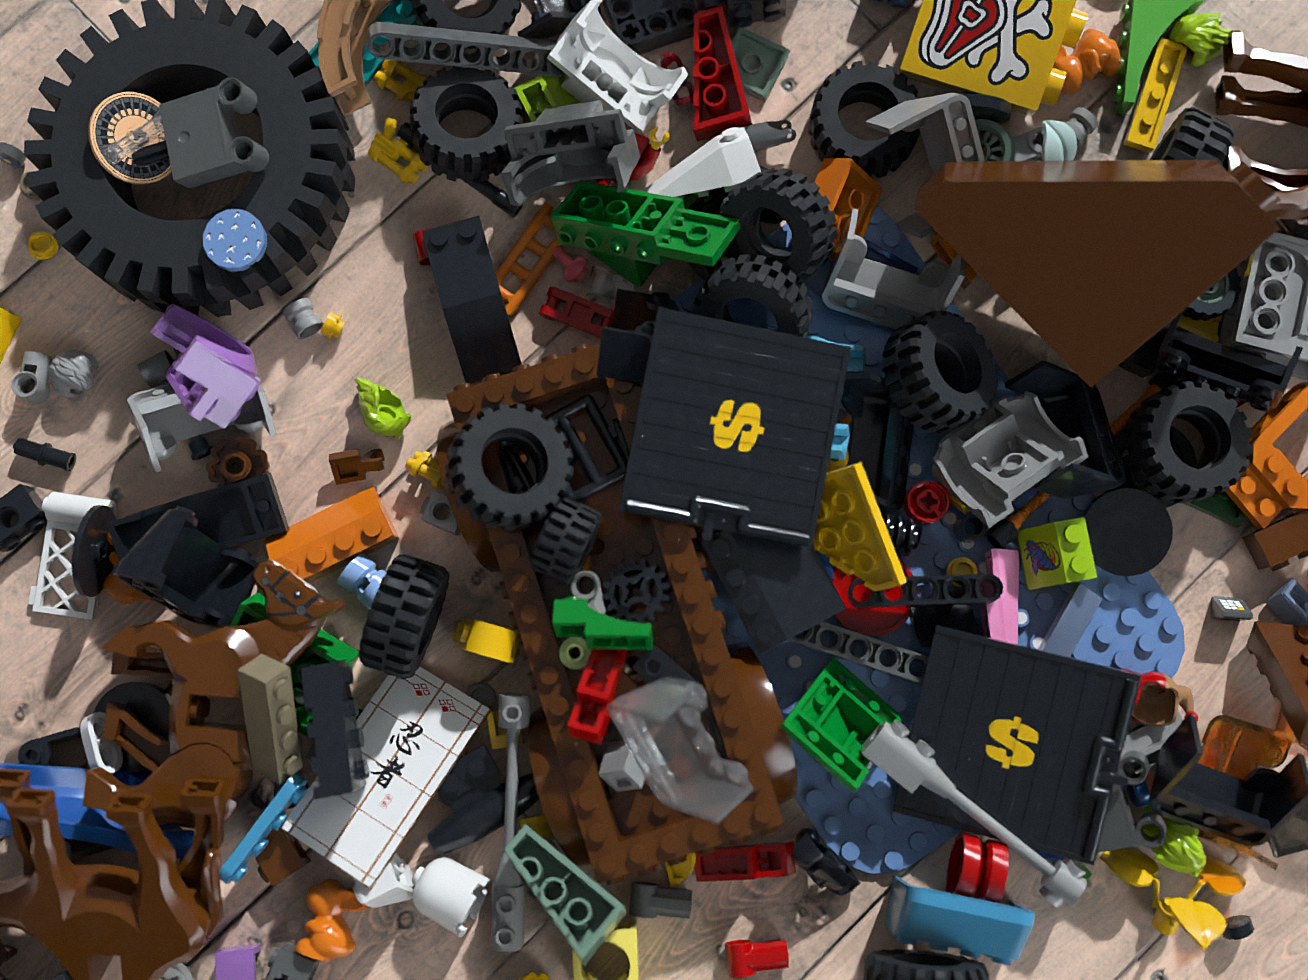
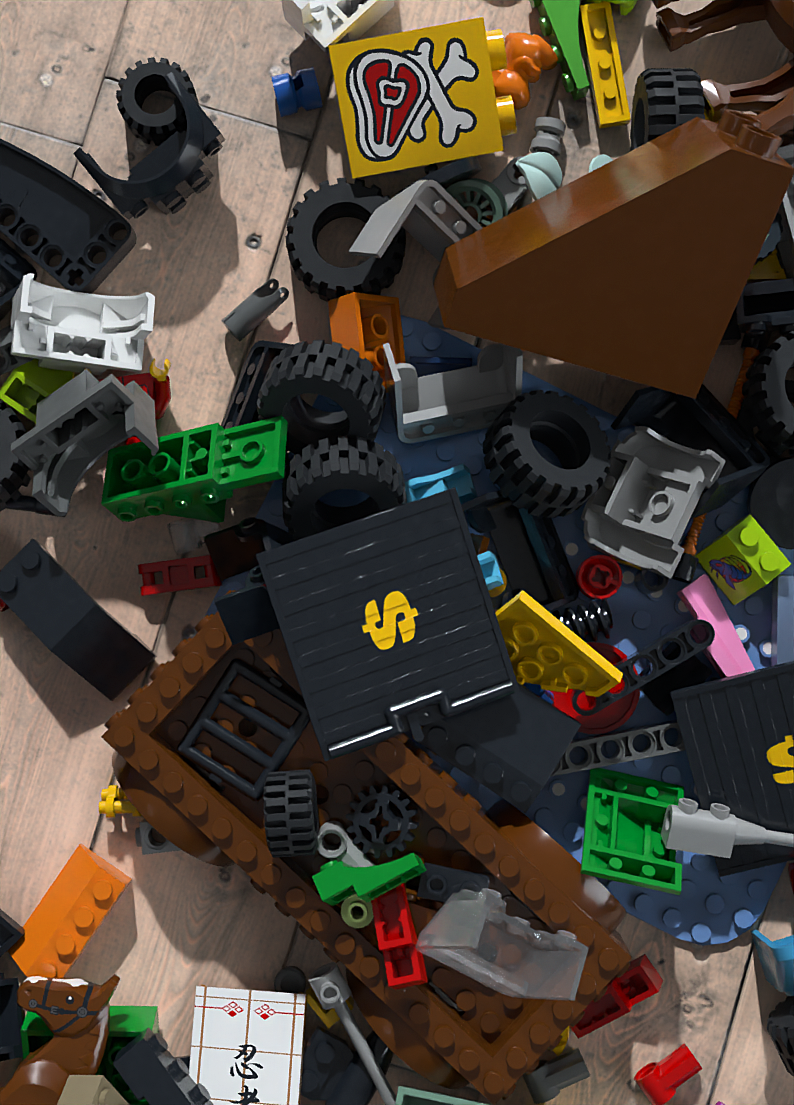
camera: 30 degrees left, 5 degrees up
(352, 467) = (51, 838): reddish brown plate -> none
(357, 575) = (124, 939): light blue wheel -> none
(381, 409) = (46, 770): lime hair -> none
(403, 616) = (179, 959): black tyre -> none
(486, 639) = (266, 936): yellow brick -> none
(530, 277) = (87, 563): orange bar -> none
(532, 435) = (233, 745): black tyre -> none
(538, 824) = (405, 1075): yellow wheel -> none
(575, 268) = (152, 534): coral plate -> none
(620, 768) = (456, 988): light grey panel -> none
(667, 59) = (125, 286): dark red helmet -> none
(717, 164) = (230, 364): white wedge -> none
(718, 89) = (188, 283): red wedge -> none
(758, 62) = (207, 241): sand green tile -> none
(823, 863) = (682, 962): black piece -> none
(961, 566) = (664, 621): yellow plate -> none

